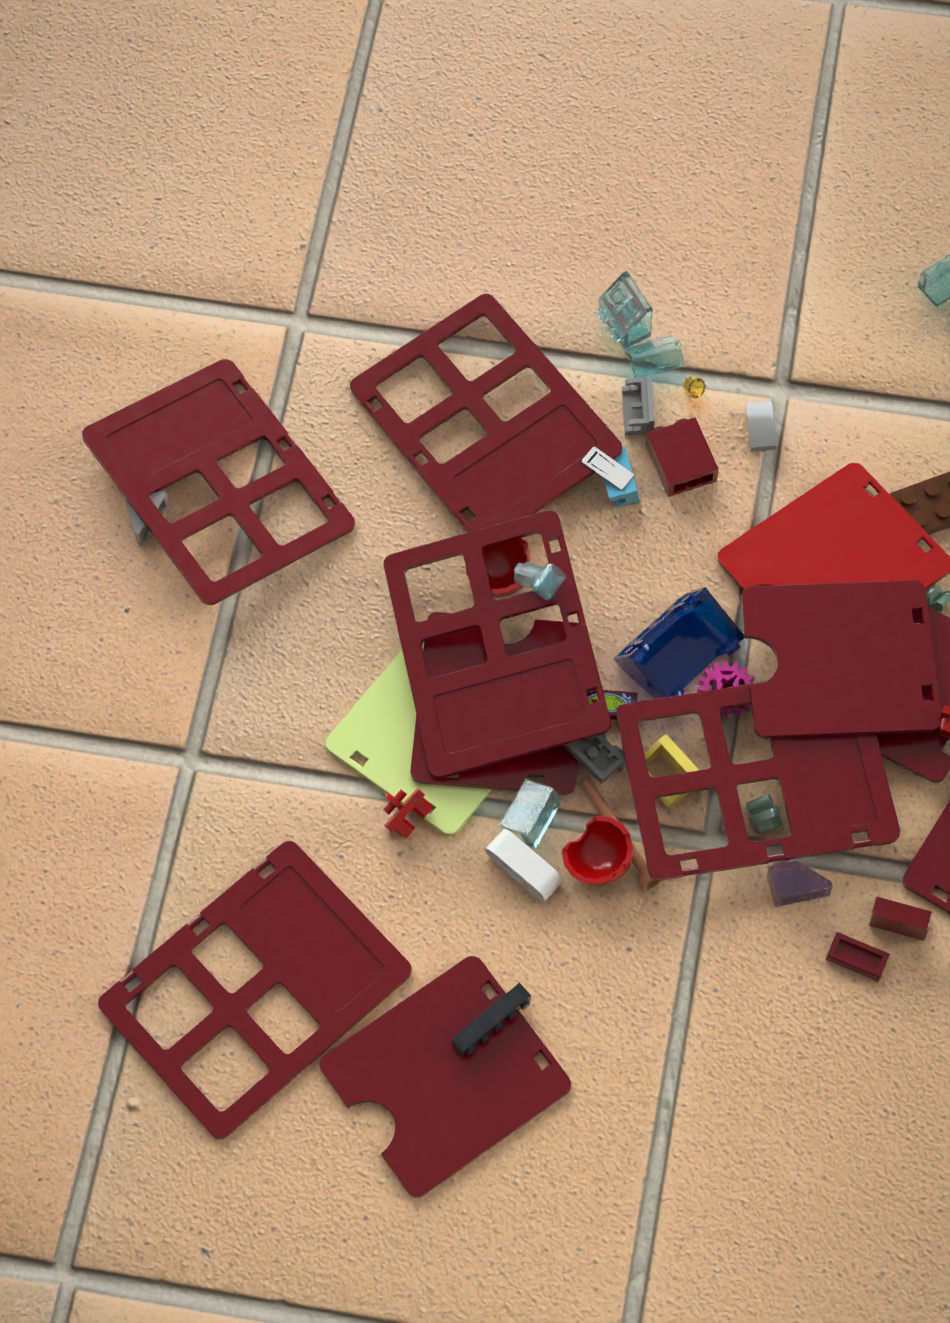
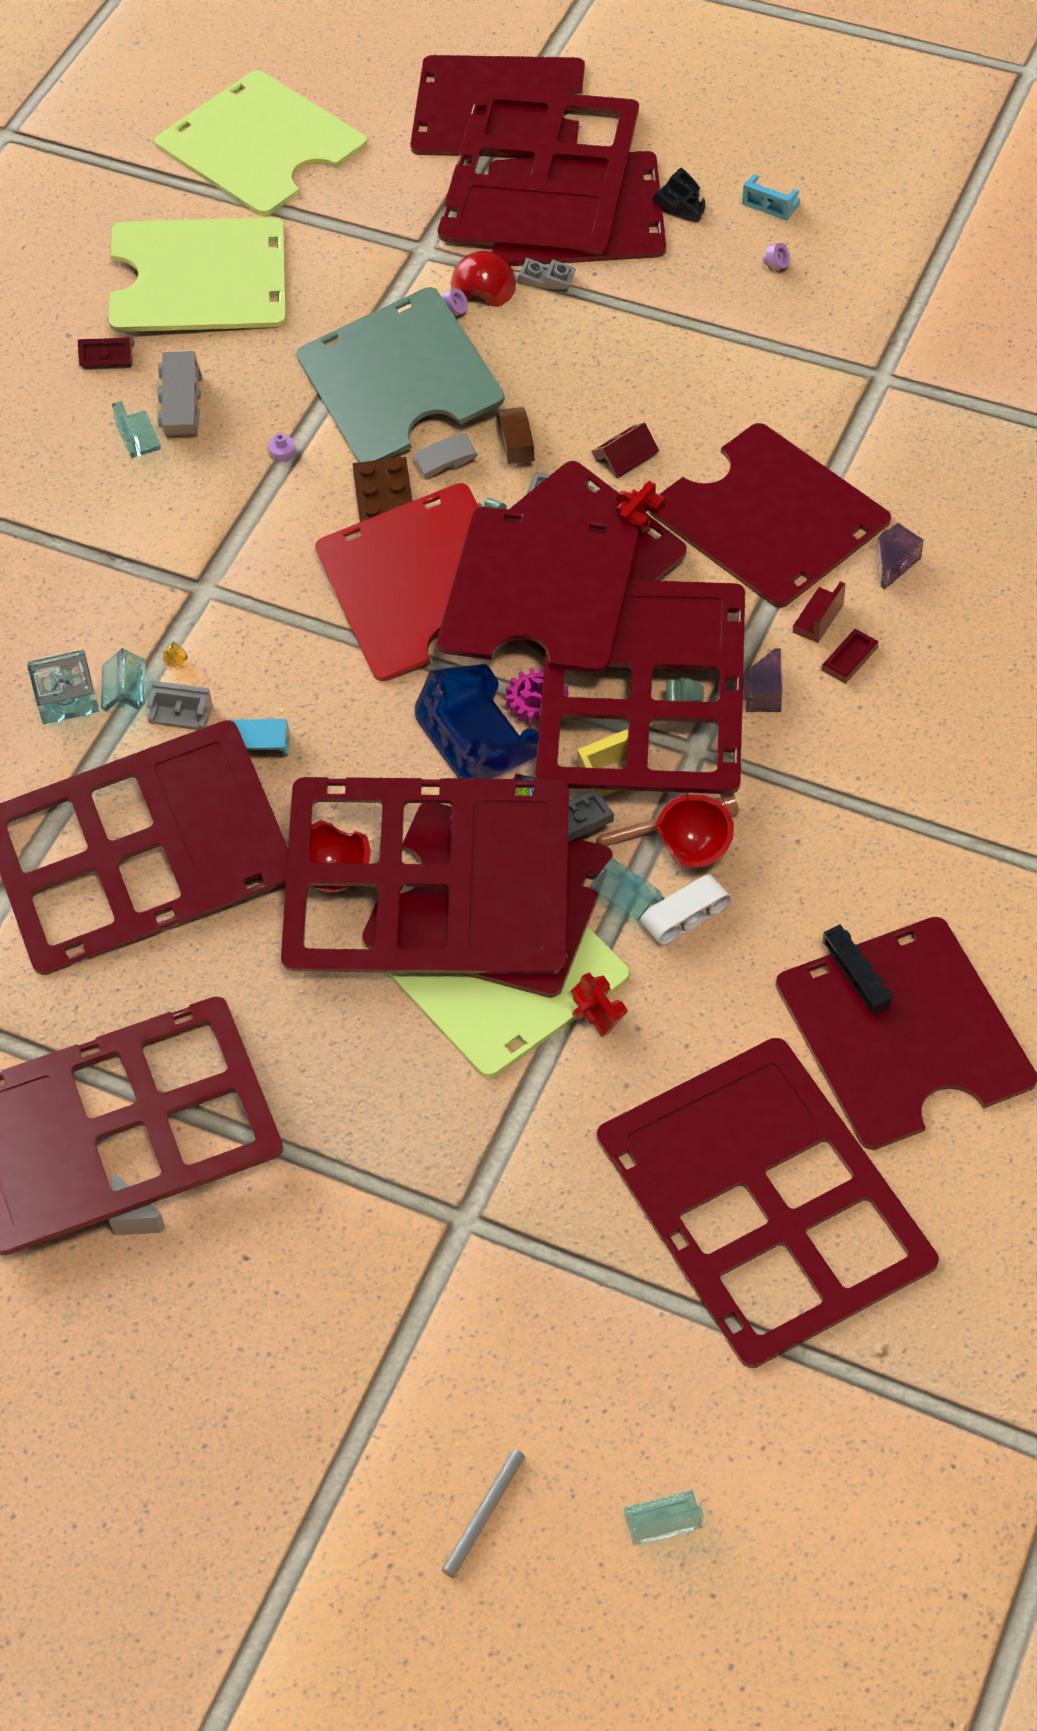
camera: 75 degrees left, 10 degrees down
(541, 579) = (380, 799): clear light blue piece -> none
(607, 468) = (250, 738): white sticker -> none
(681, 456) = (253, 680): dark red brick -> none
(761, 426) = (250, 607): light grey slope -> none

